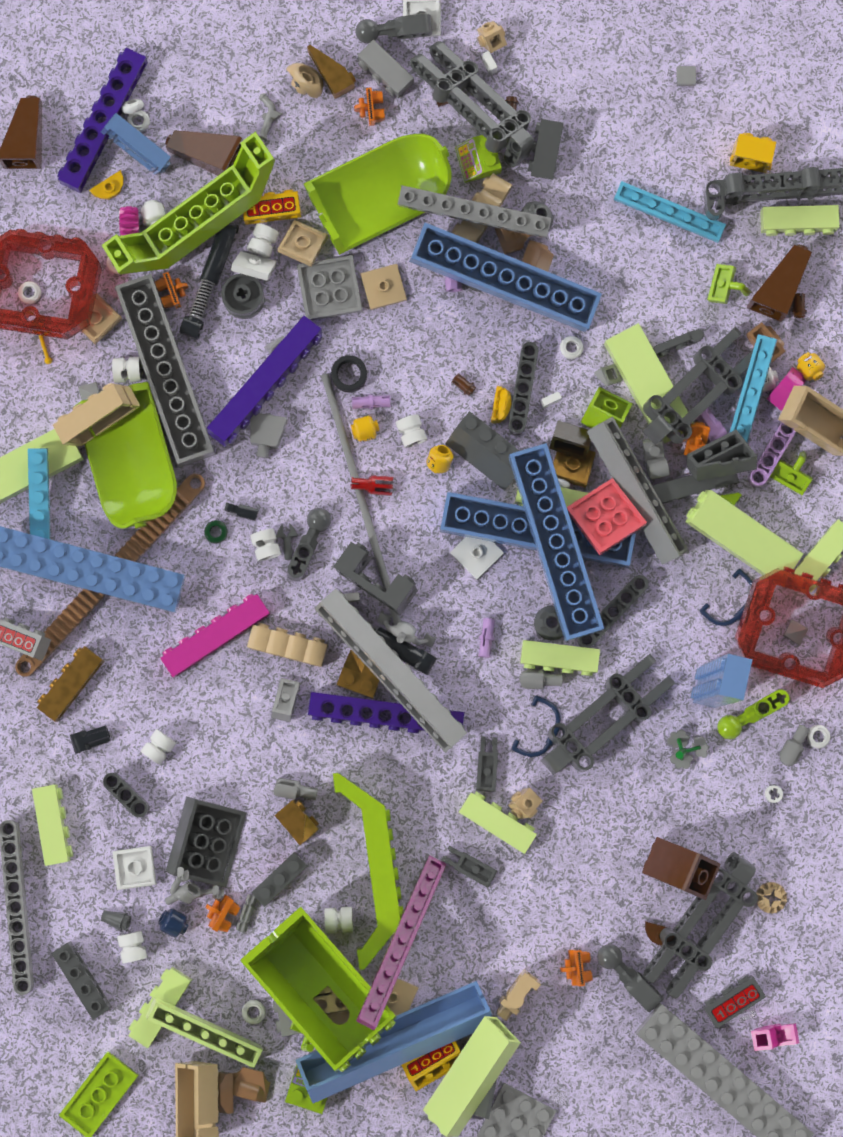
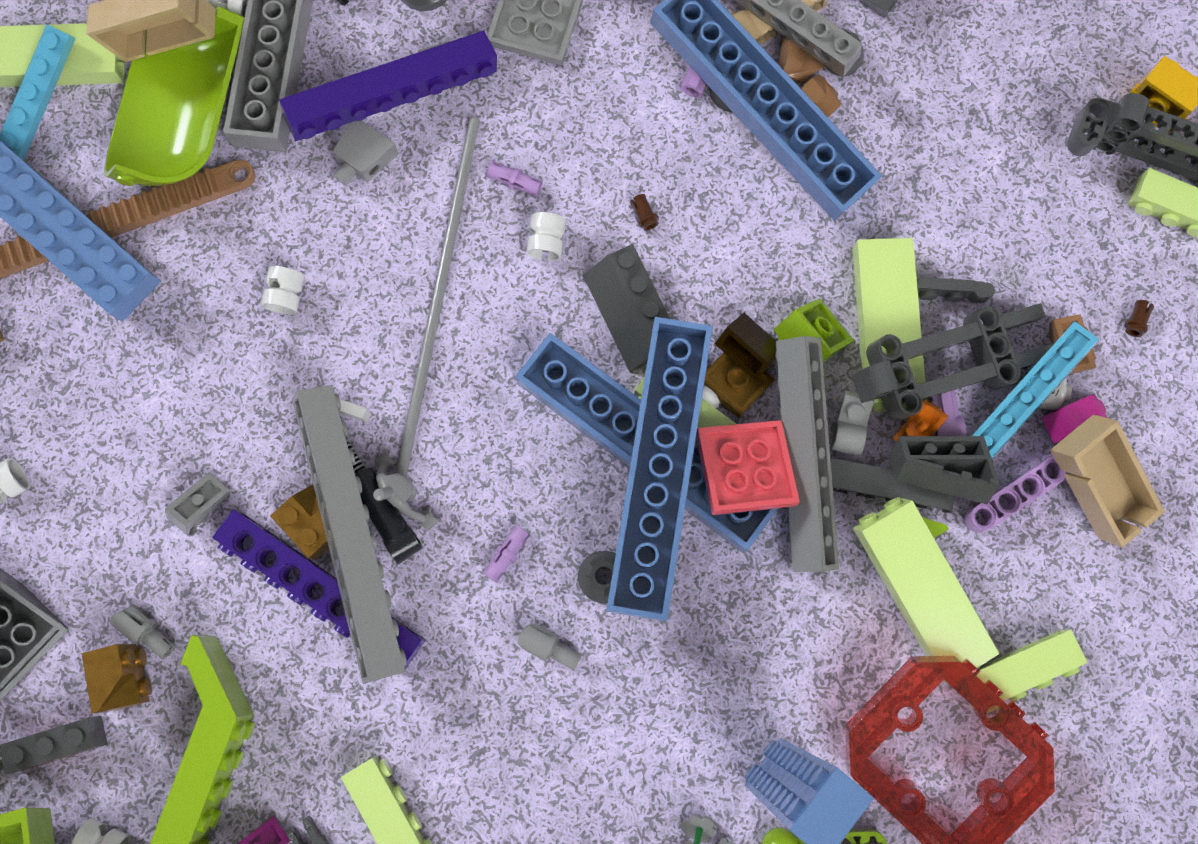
camera: 30 degrees right, 5 degrees down
(209, 526) = (240, 253): dark green piece -> none
(215, 635) = (154, 375): dark pink brick -> none
(242, 511) = (279, 235): black bar -> none
(287, 540) = (316, 299): dark grey bar -> none
(288, 646) = (239, 434): tan brick -> none
(318, 521) = (367, 294): dark grey beam -> none
(349, 359) = (500, 111): black tyre -> none
(353, 563) = (379, 367): dark grey plate -> none
(364, 428) = (488, 207): yellow head -> none
(370, 485) = (456, 279): red arm -> none
(383, 286) = (604, 48): tan plate -> none
(439, 459) = (563, 289): yellow head -> none
(476, 555) = (550, 438): white plate -> none
(487, 767) = (416, 732): dark grey hinge -> none
(501, 405) = (679, 261): yellow plate -> none
(523, 379) = (721, 240): dark grey beam -> none
(525, 803) = (439, 812): tan brick -> none
(548, 742) = (527, 733): dark blue piece -> none
(551, 399) = (748, 283): white tile -> none
(560, 657) = (590, 628): yellowish green brick -> none
(560, 756) = (517, 770): dark grey beam -> none
(569, 355) = (803, 241): white piece -> none
(606, 377) = (836, 288): light grey slope -> none
(619, 605) = (708, 600): dark grey beam -> none
(669, 212) = (1019, 123): medium azure plate -> none
(723, 283) = (1048, 242): lime plate -> none
(737, 616) = (865, 694): dark blue piece -> none
(779, 289) = (1123, 282): reddish brown slope -> none
(791, 475) = (1029, 538): lime plate -> none
(795, 632) = (935, 757): light grey slope -> none
(811, 366) = (1122, 404): yellow head -> none

